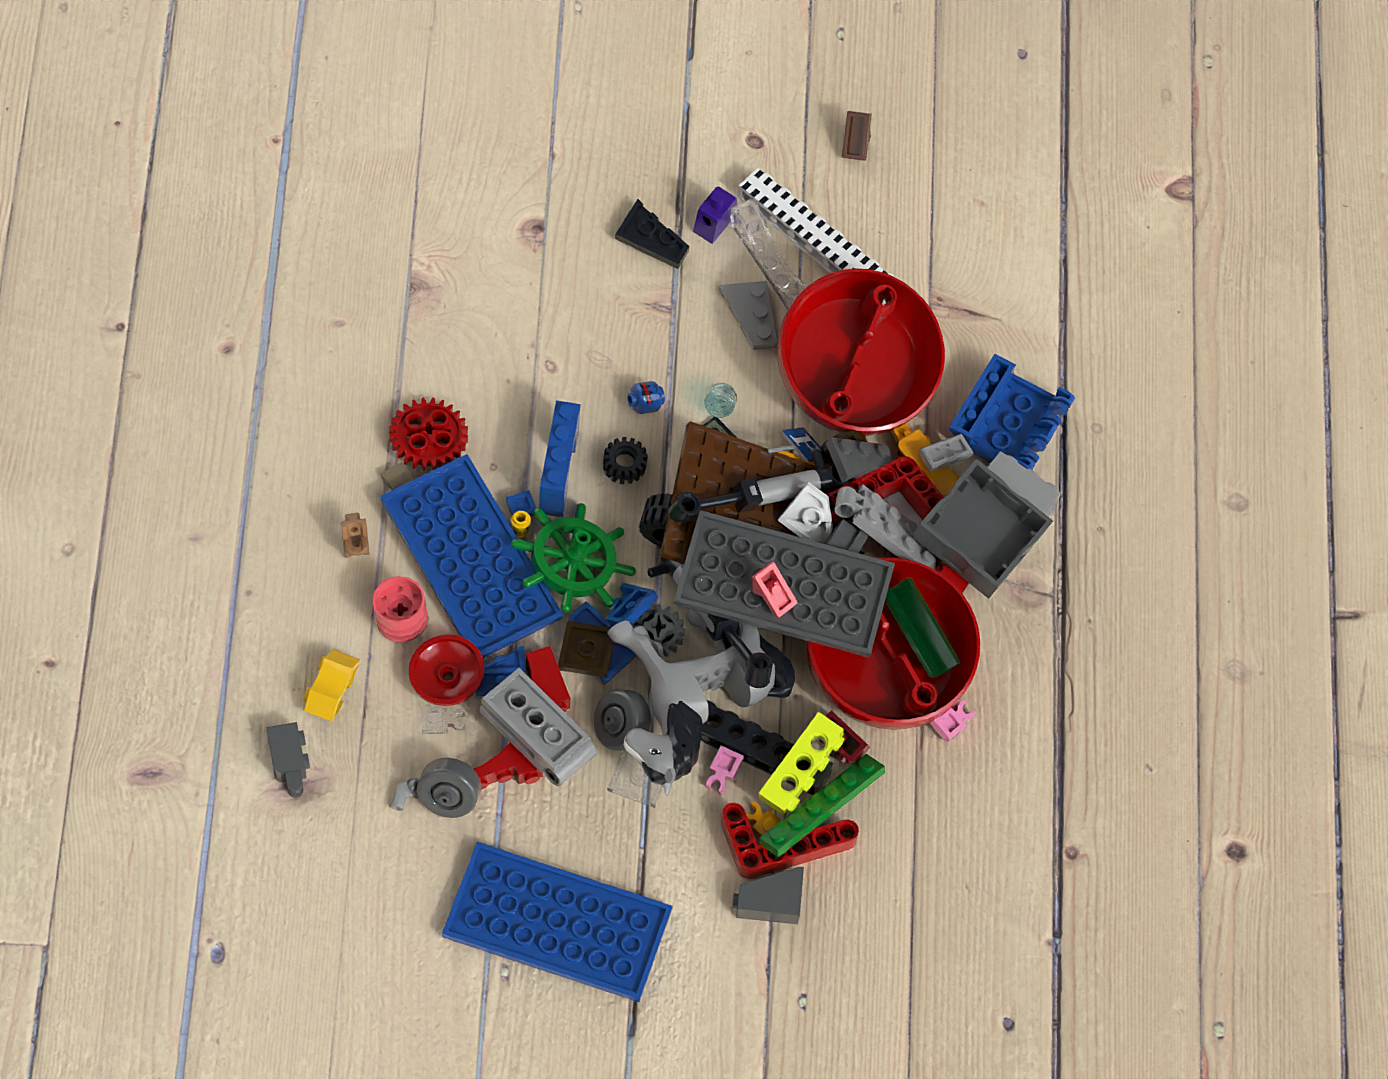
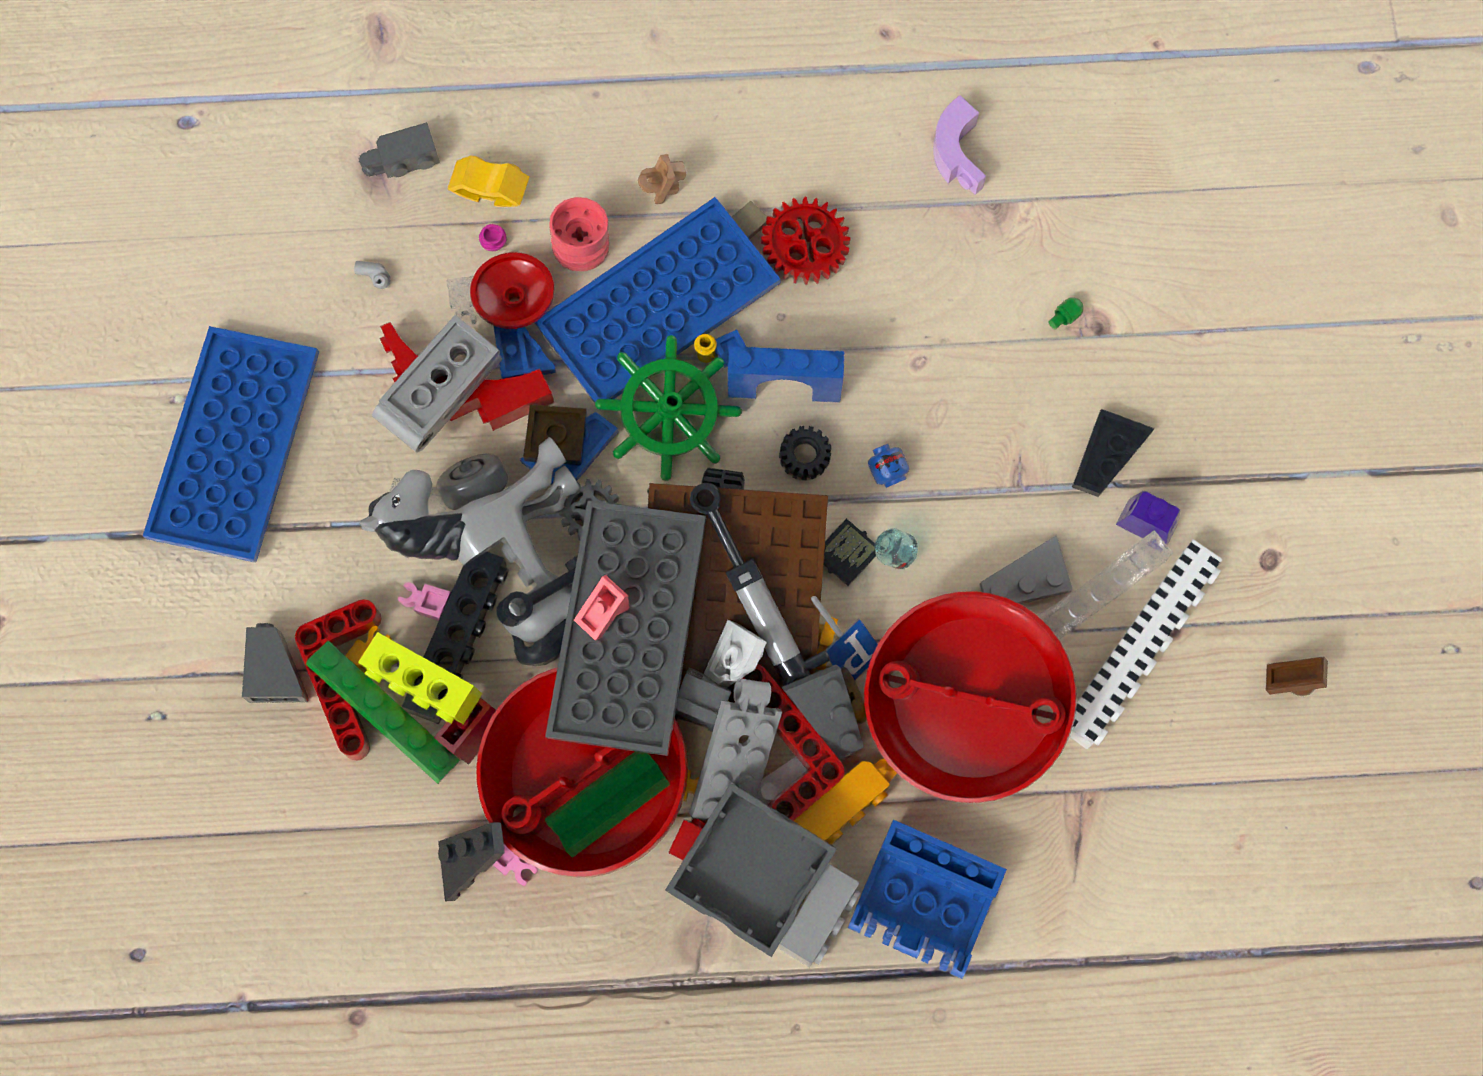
camera: 90 degrees right, 10 degrees up
(353, 311) = (950, 160): none -> lavender arch
(384, 689) = (492, 237): none -> dark pink plate
(449, 787) = (372, 309): dark grey wheel -> none
(523, 246) = (1067, 312): none -> green cylinder
(632, 604) = (610, 473): blue wing -> none
(946, 453) = (856, 818): light grey plate -> none
(951, 743) = (467, 855): none -> black wing

